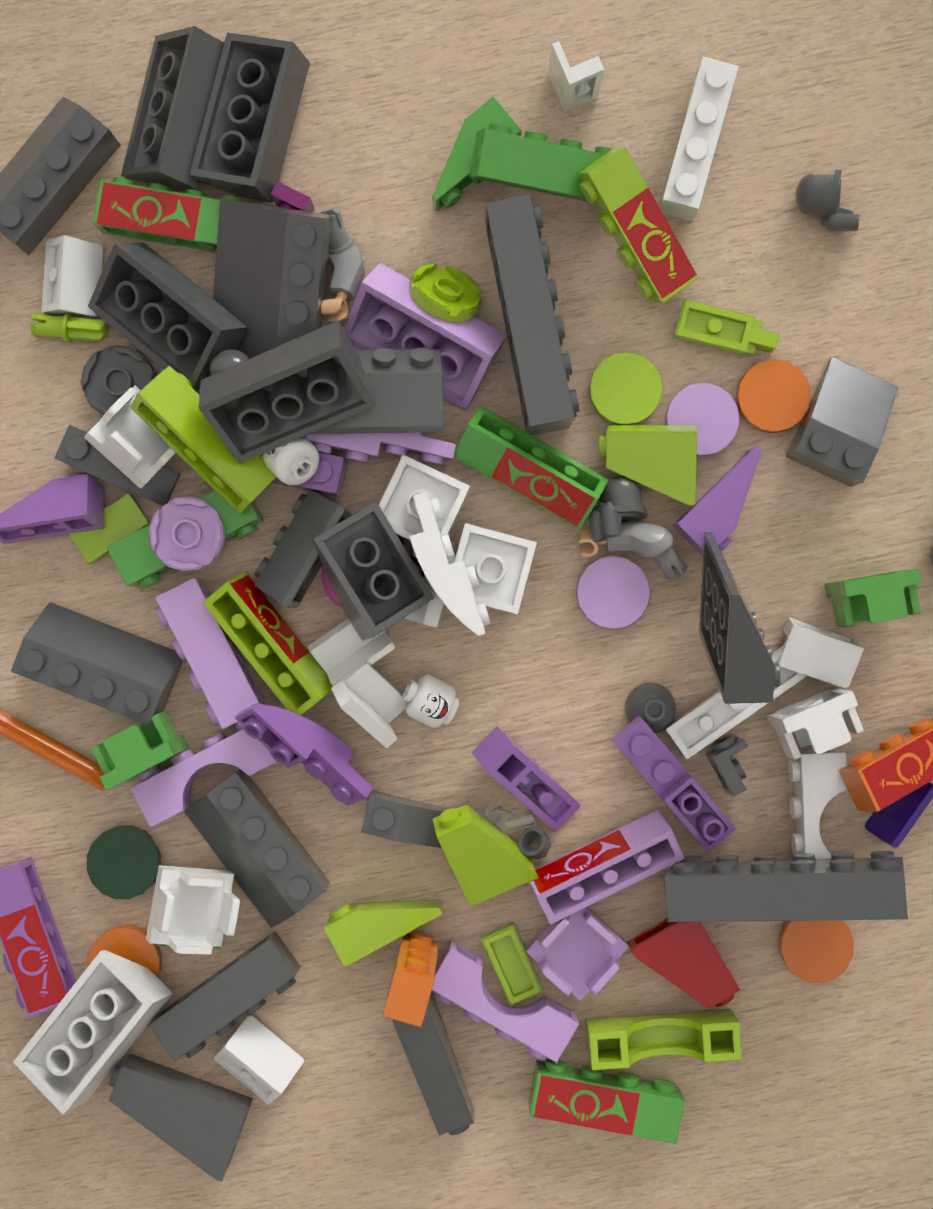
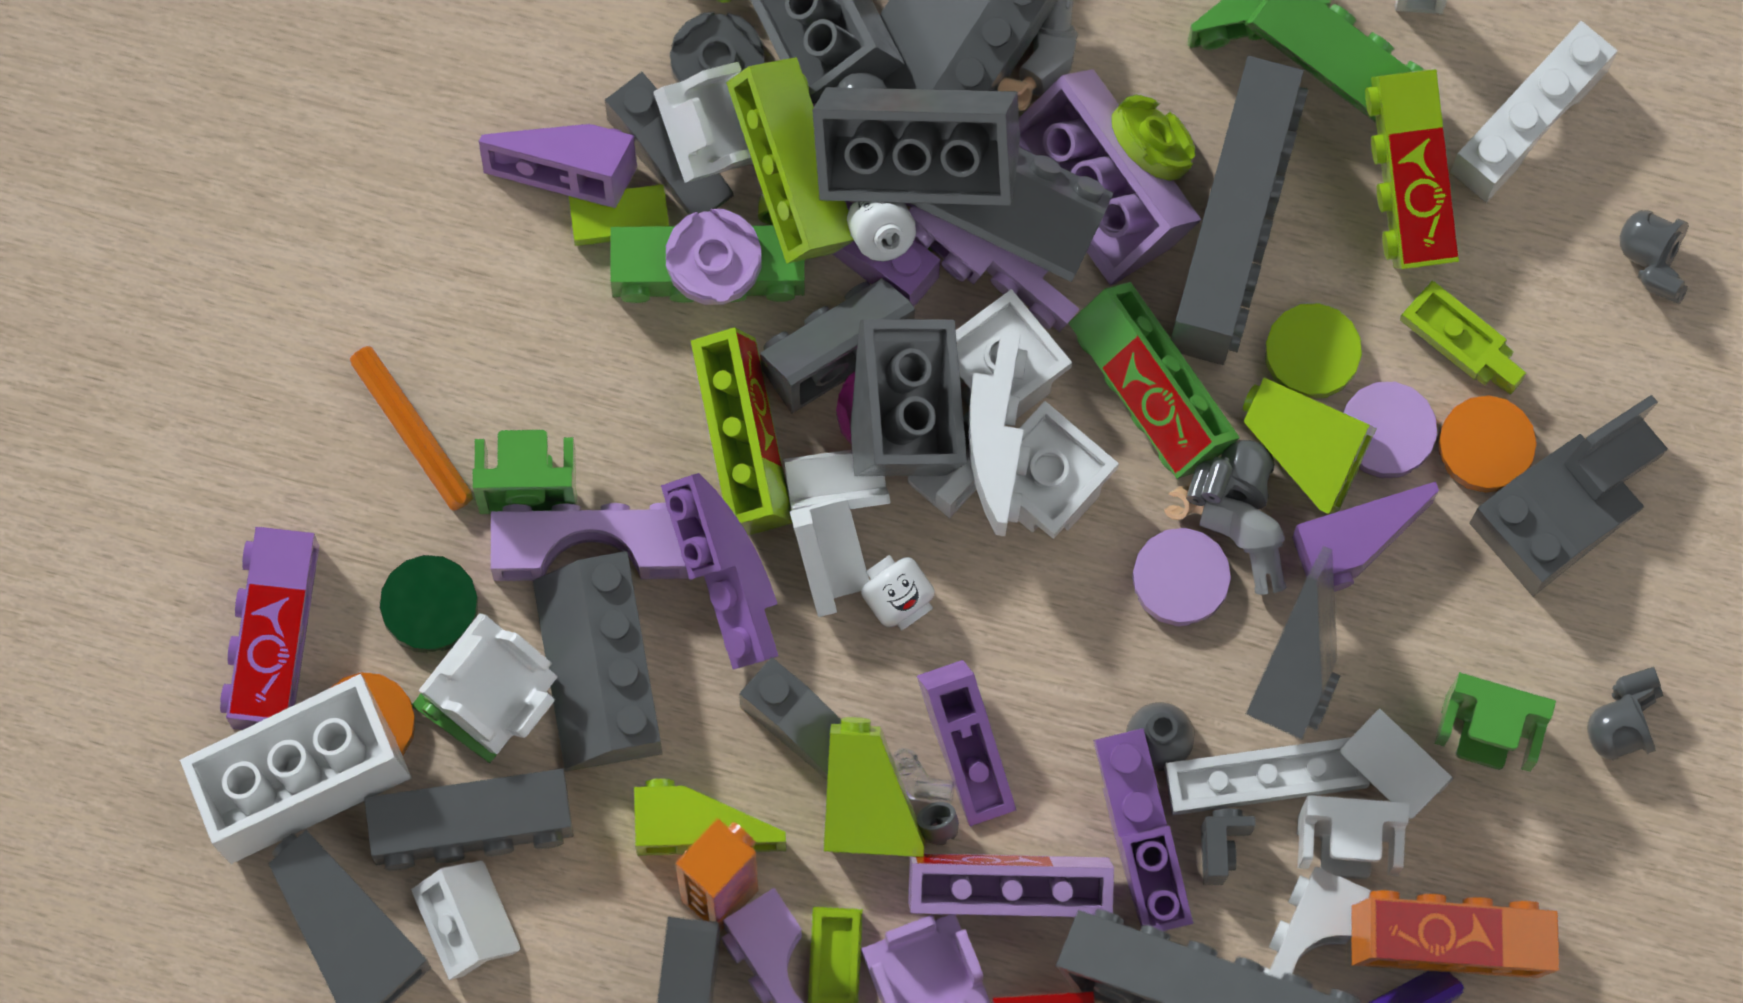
camera: 25 degrees right, 15 degrees down
(98, 663) = (525, 358): dark grey slope -> none
(209, 651) = (664, 403): lavender brick -> none
(866, 360) = (1616, 451): none -> dark grey panel

